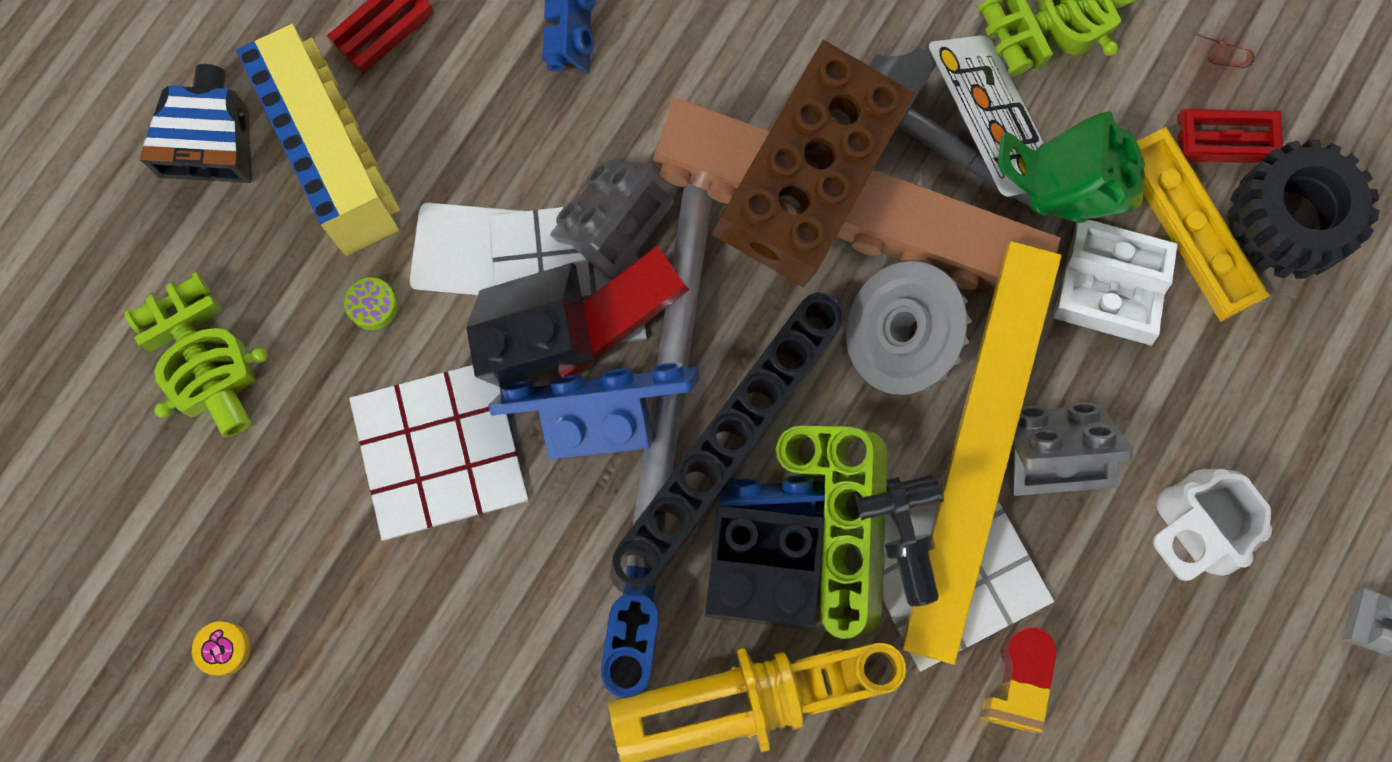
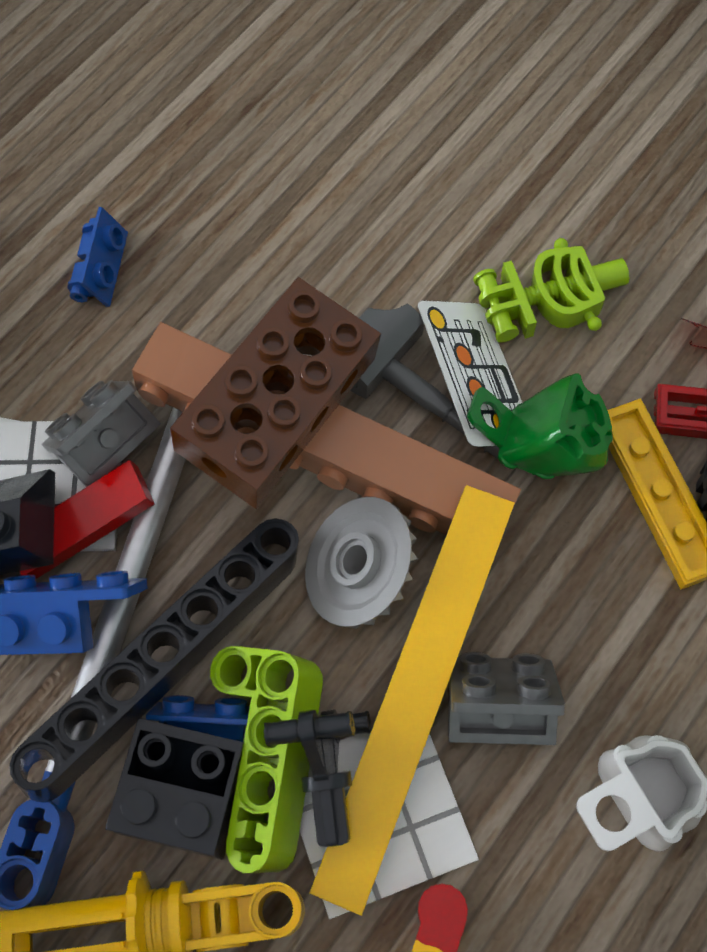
camera: 10 degrees right, 10 degrees down
(1115, 281) = (577, 539): white slope -> none

